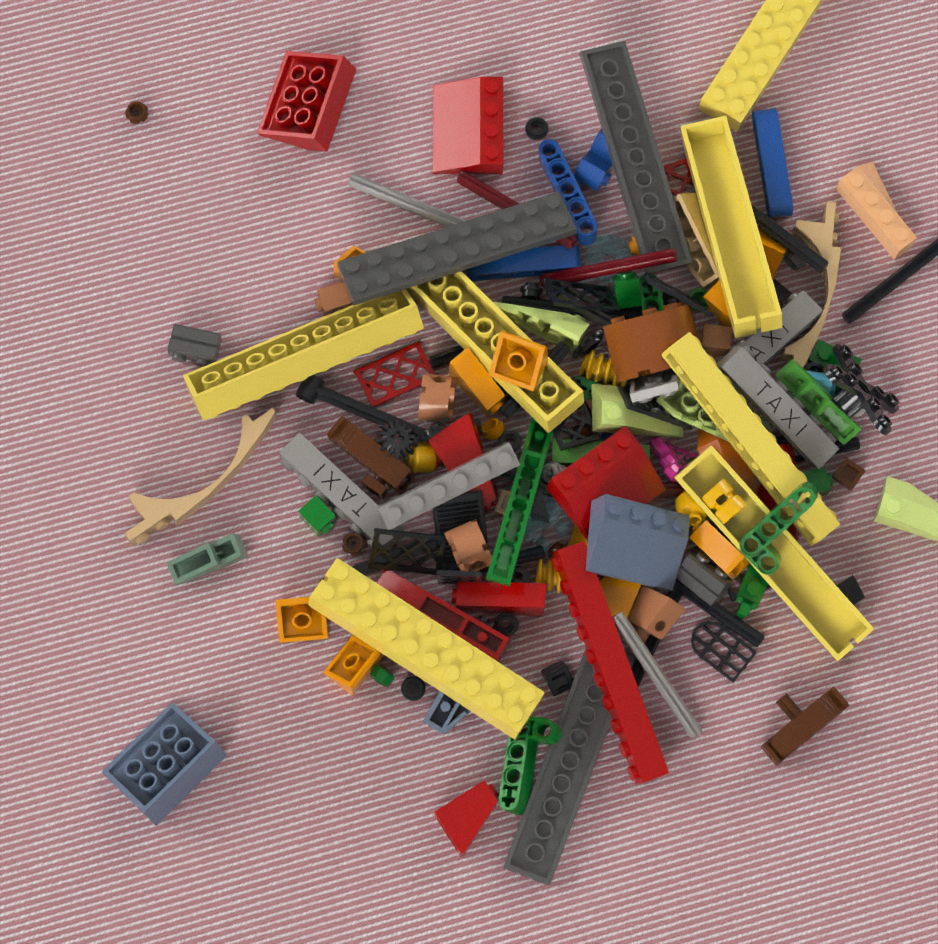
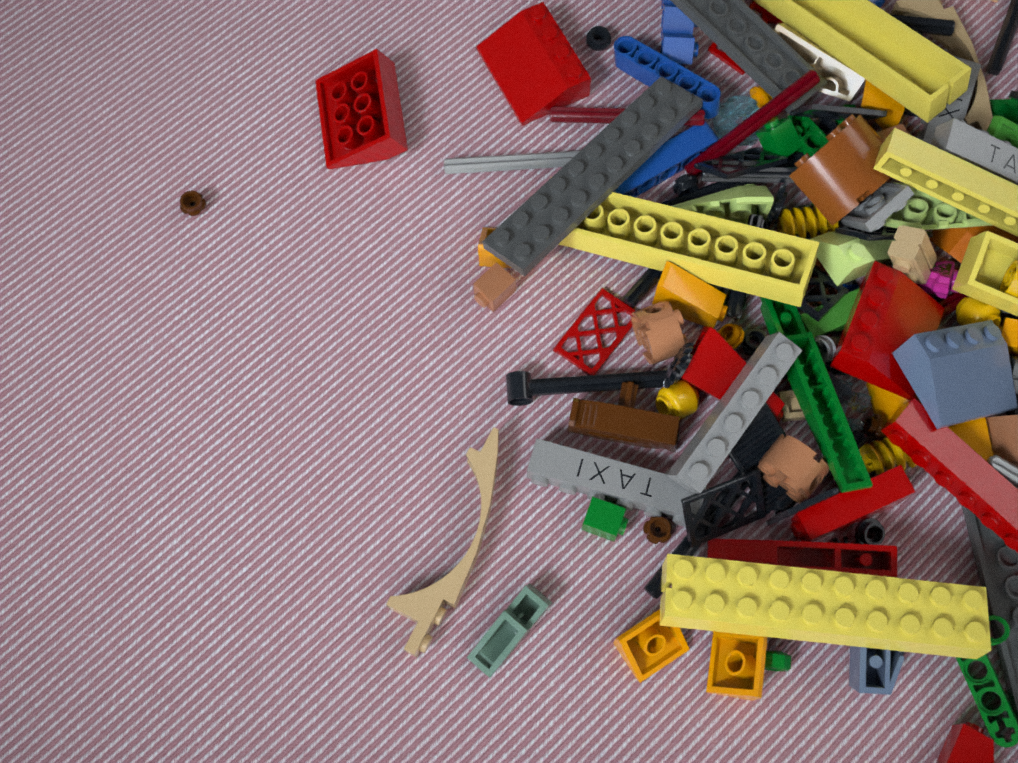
camera: 20 degrees left, 5 degrees down
(194, 345) = (372, 404): dark grey brick -> none
(302, 353) = (491, 357): light yellow brick -> none
(375, 485) = (646, 455): reddish brown plate -> none
(390, 444) = (643, 402): black gear -> none
(413, 688) = (815, 657): black plate -> none
(518, 361) = (736, 242): light orange slope -> none
(557, 677) = (955, 562): black slope -> none
(657, 436) = (912, 253): none -> tan brick

